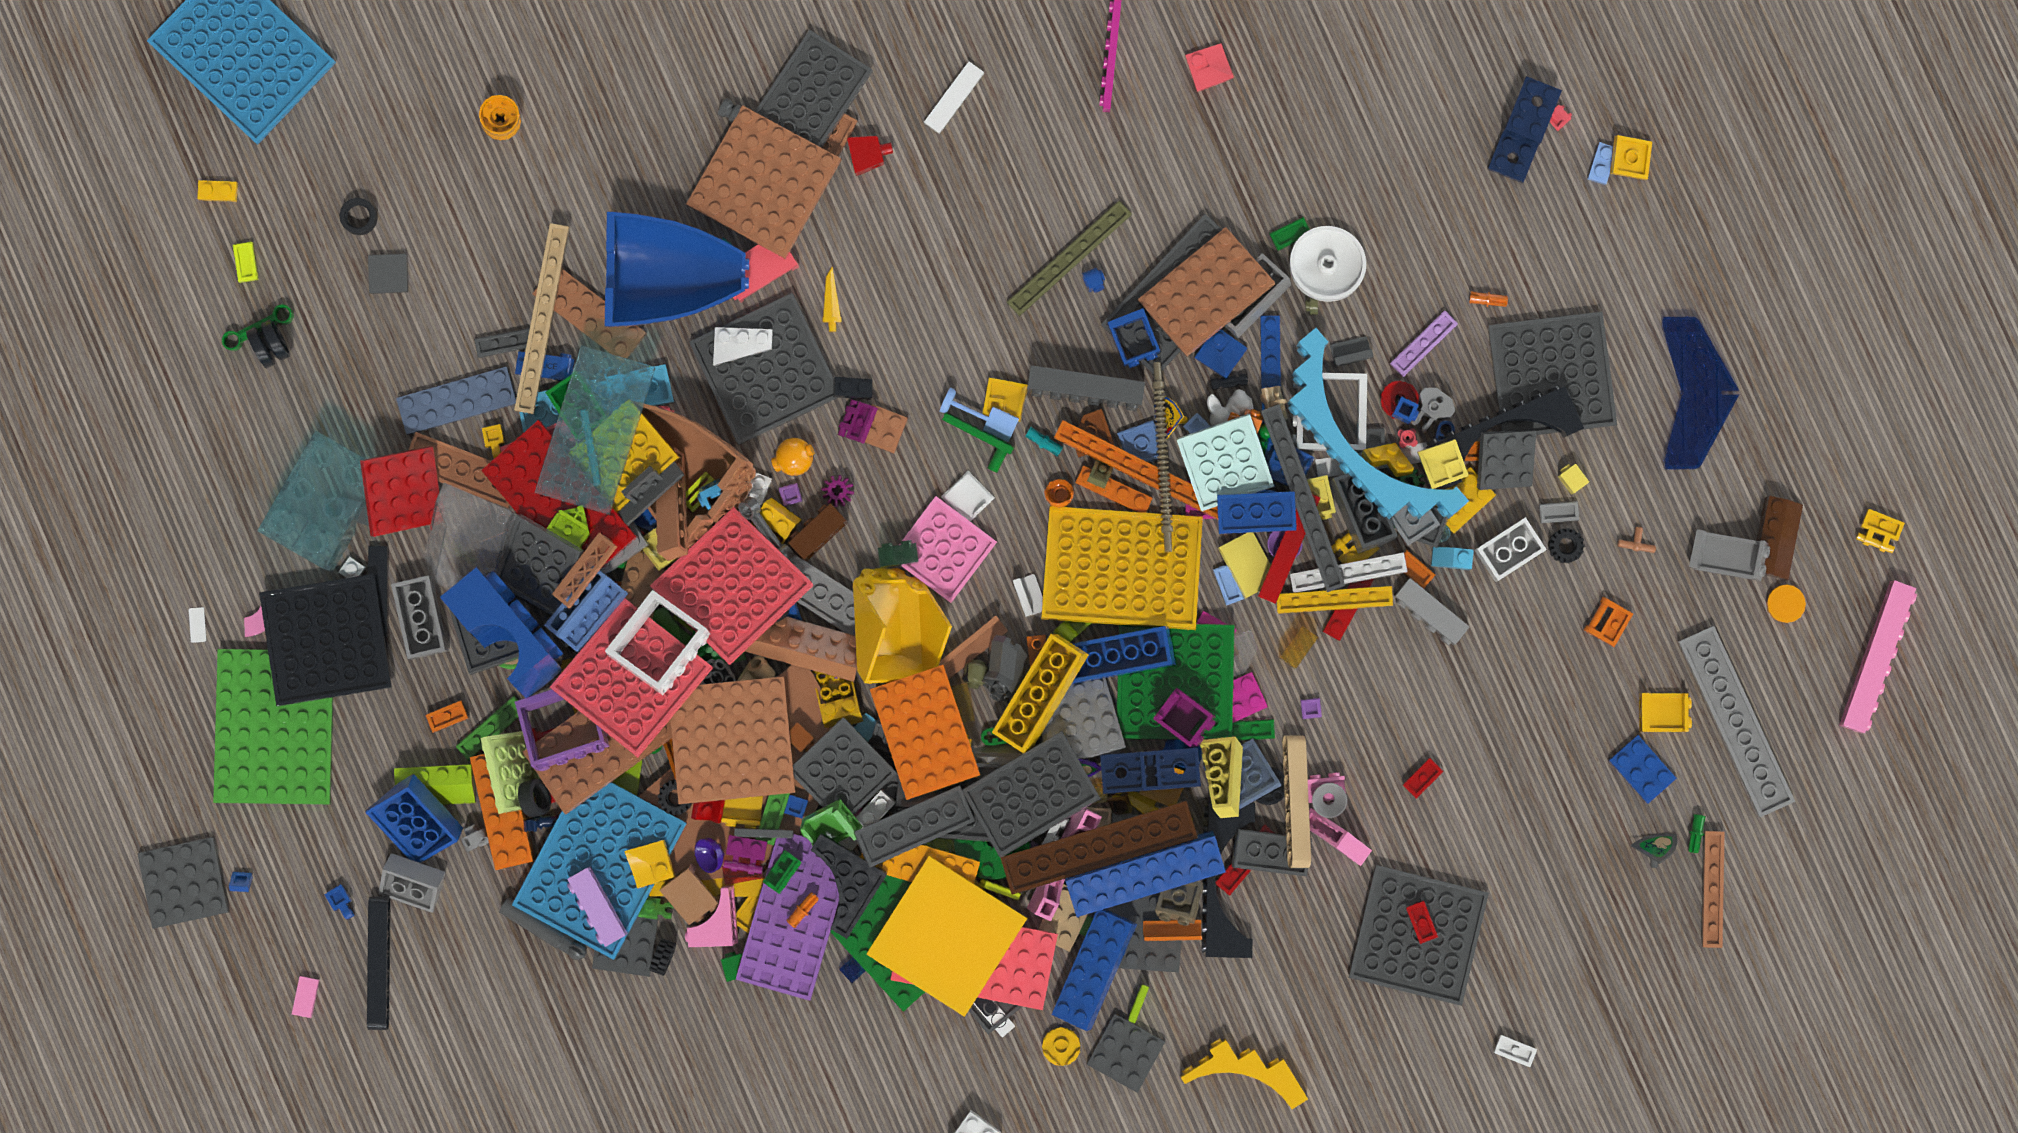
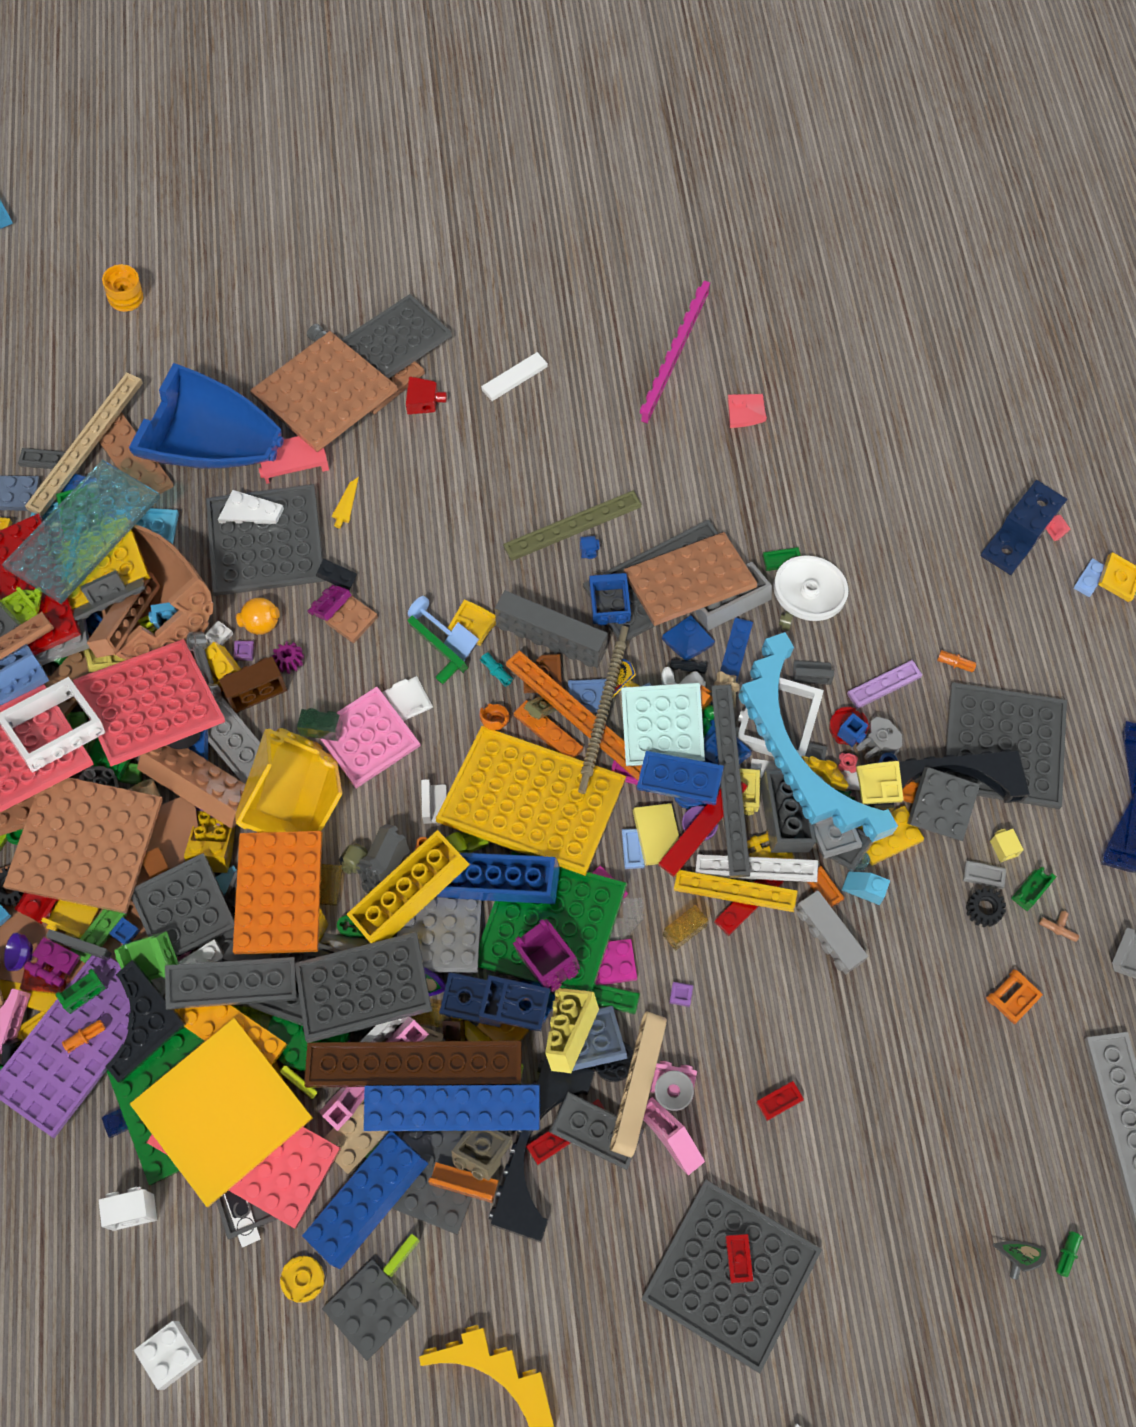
camera: 10 degrees right, 20 degrees down
(739, 939) = (9, 1049): none -> black tile
(897, 1037) = (127, 1209): none -> white brick
(972, 647) = (357, 832): nougat fence -> none
(1510, 549) = (927, 893): white brick -> none
(1606, 514) = (1033, 888): none -> green hinge
(1642, 769) = (1021, 1164): blue plate -> none
(1664, 712) = (1057, 1109): yellow panel -> none
(1713, 889) = (1076, 1326): nougat plate -> none

